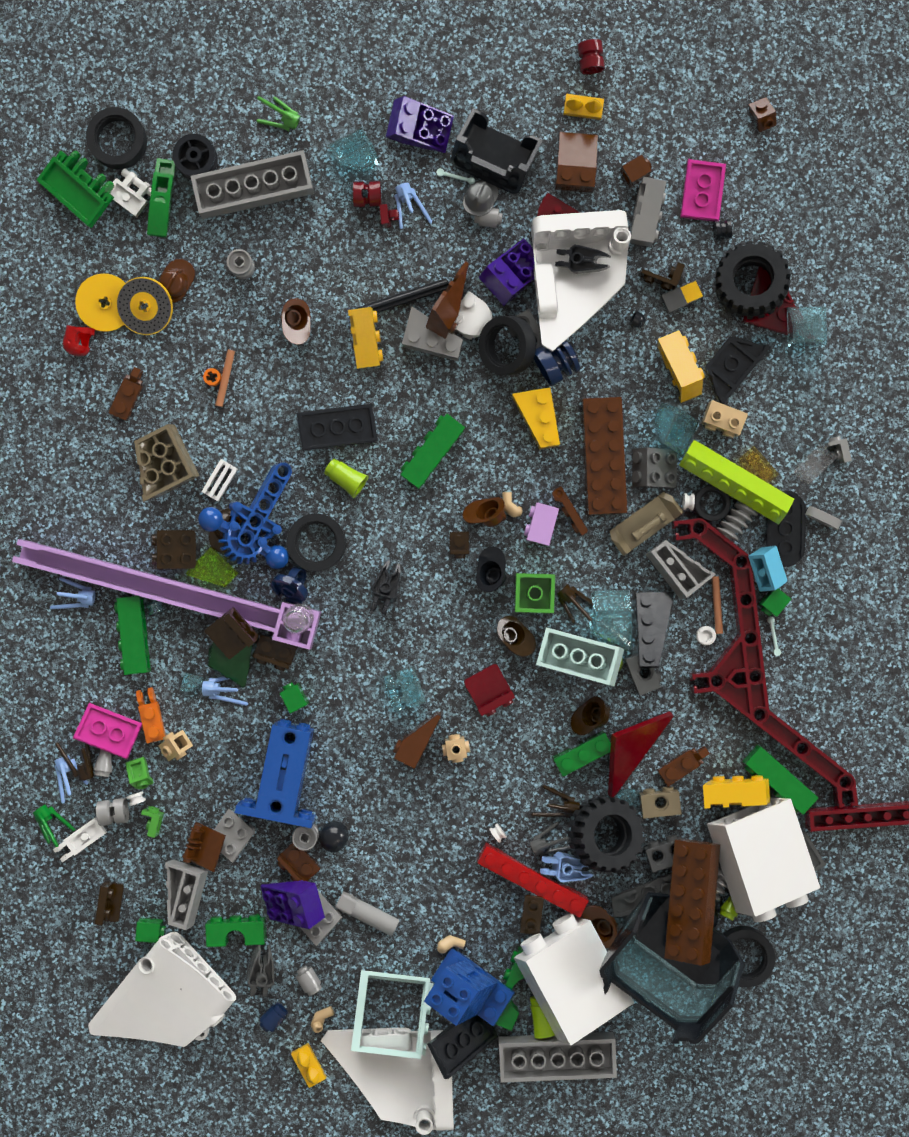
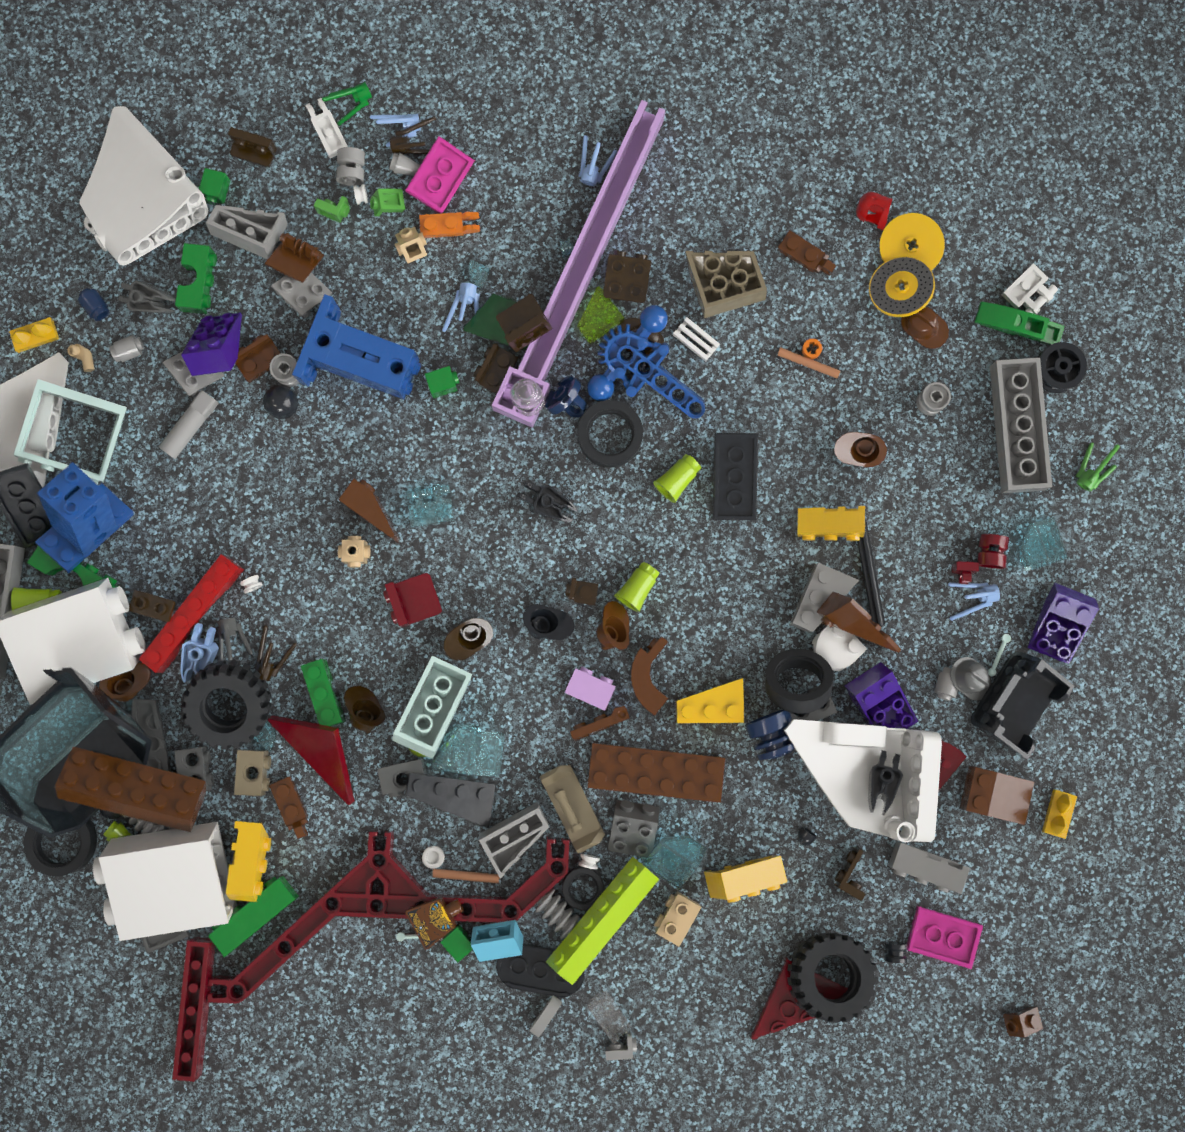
camera: 105 degrees right, 5 degrees down
(73, 187) = (1042, 232): green hinge -> none
(105, 117) = (1110, 267): black tyre -> none
(132, 635) = (540, 218): green brick -> none
(432, 451) = (691, 578): green brick -> none
(447, 497) = (637, 587): none -> lime plant
(449, 942) = (139, 509): tan arm -> none
(510, 507) = (615, 656): tan arm -> none
(520, 483) = (641, 682): none -> reddish brown arch
(534, 593) = (513, 667): bright green brick -> none
(568, 595) = (505, 706): dark brown plant -> none
(591, 53) = (1118, 831): dark red wheel -> none
(635, 170) = (979, 862): reddish brown brick -> none
(682, 296) = (825, 893): dark grey tile -> none
(733, 364) = (738, 939): black wing -> none
(757, 464) = (617, 949): clear yellow wing -> none
(759, 625) = (433, 919): none -> torso
(807, 326) = (770, 1033): clear light blue slope -> none

